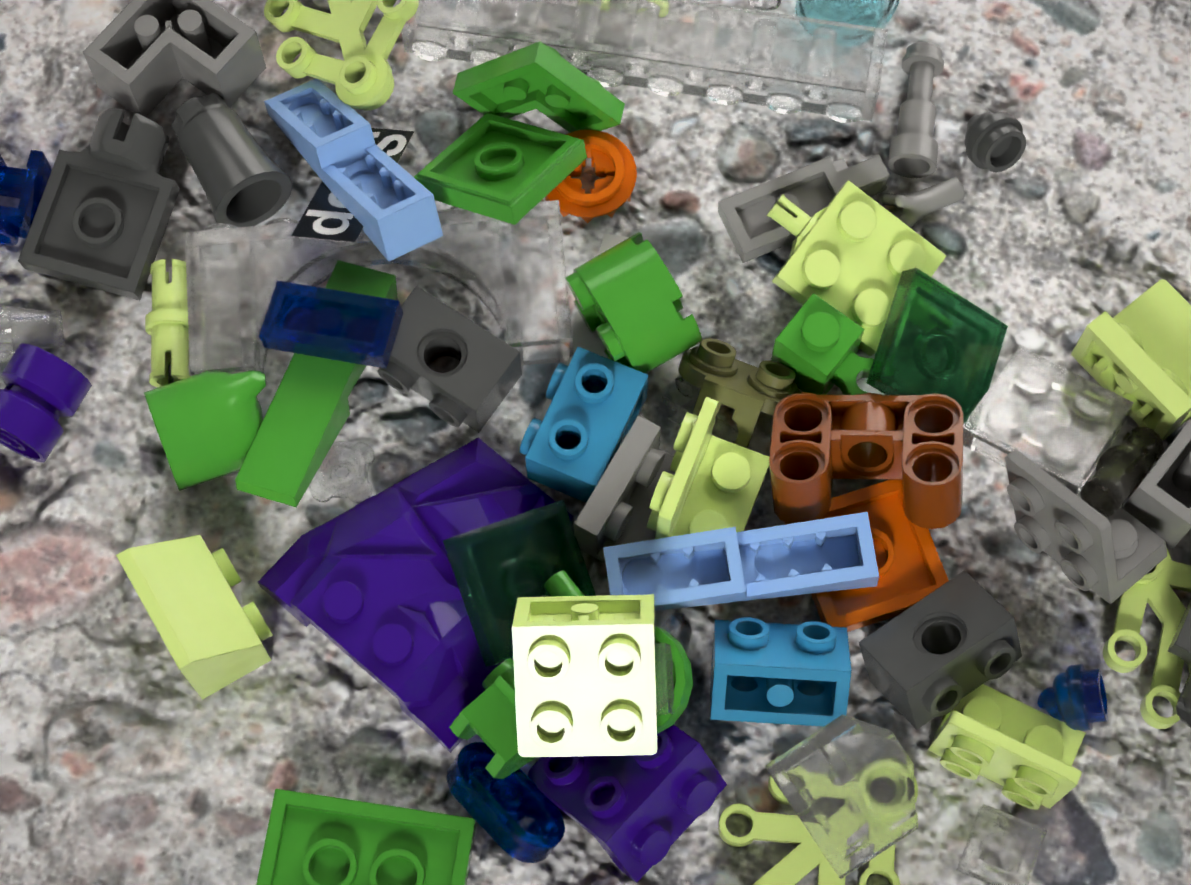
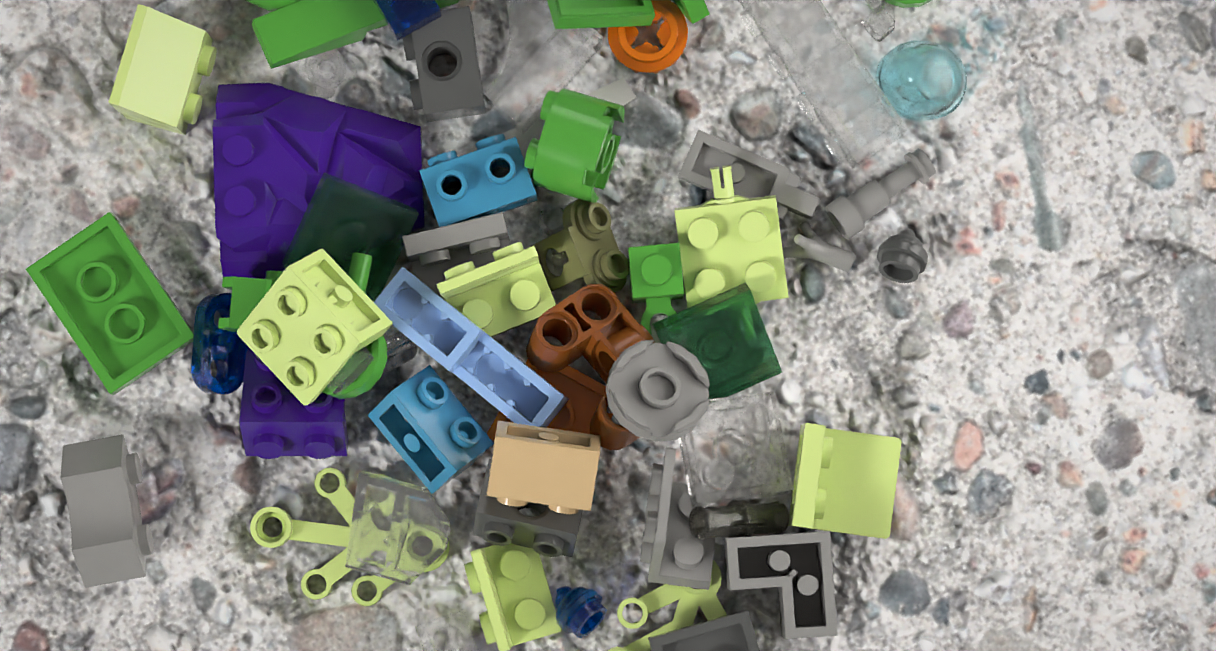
camera: 45 degrees right, 15 degrees up
(923, 585) = (544, 467): none -> tan brick
(942, 420) = (658, 390): none -> light grey tile

